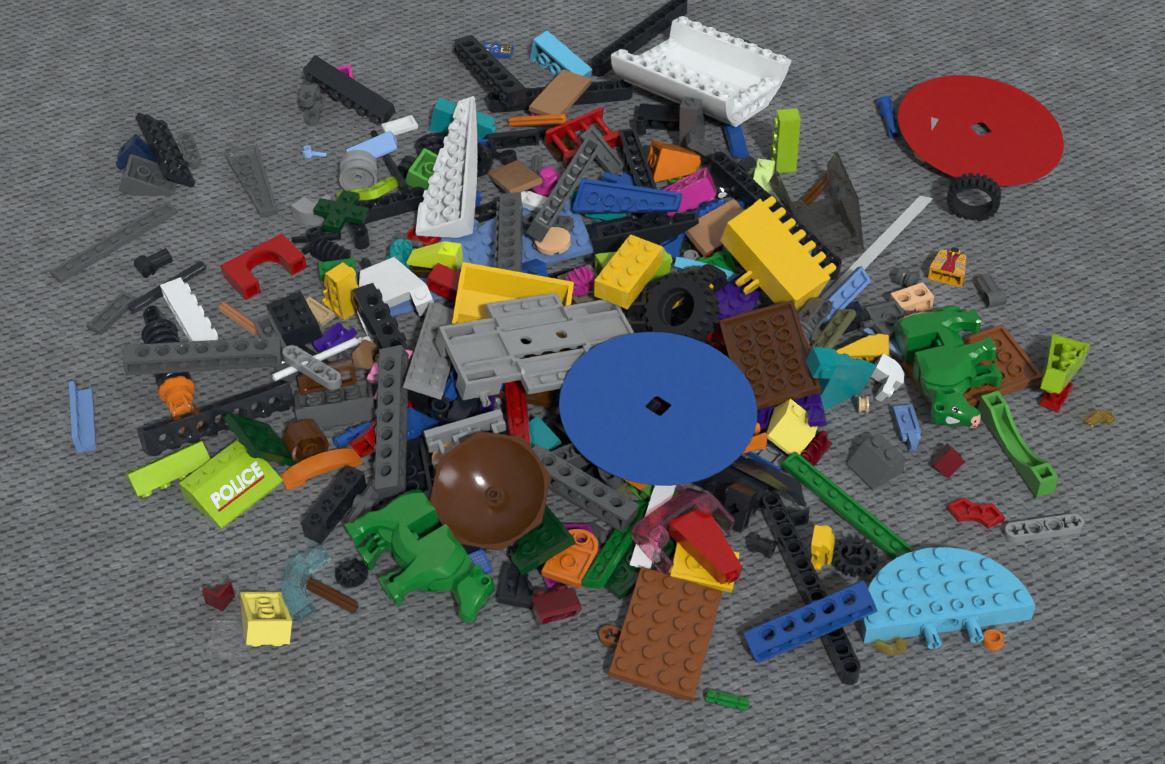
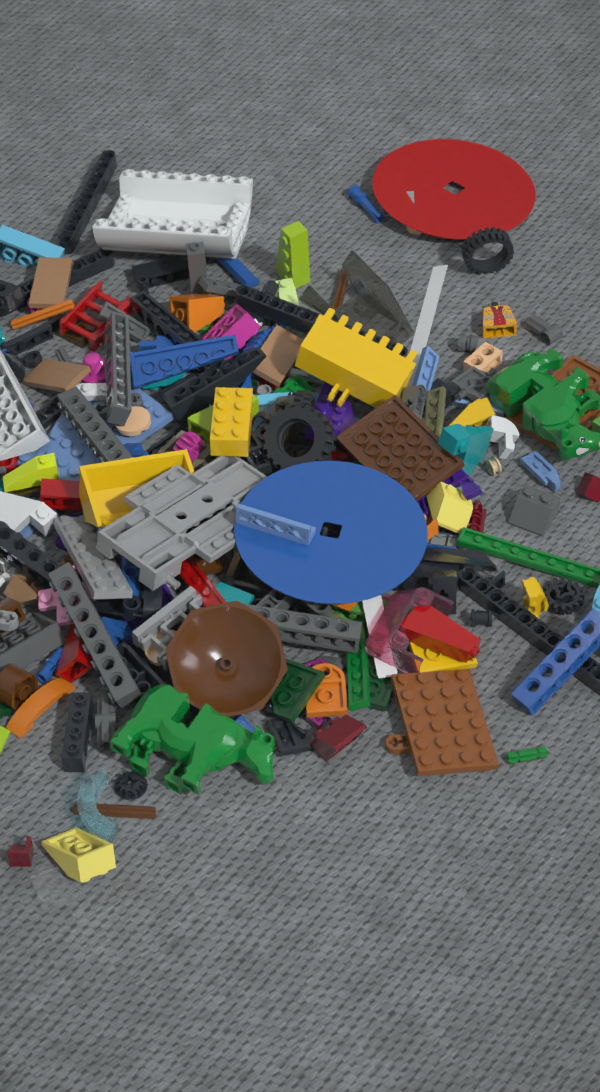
camera: 25 degrees left, 0 degrees up
(606, 380) = (274, 524): none -> medium blue fence

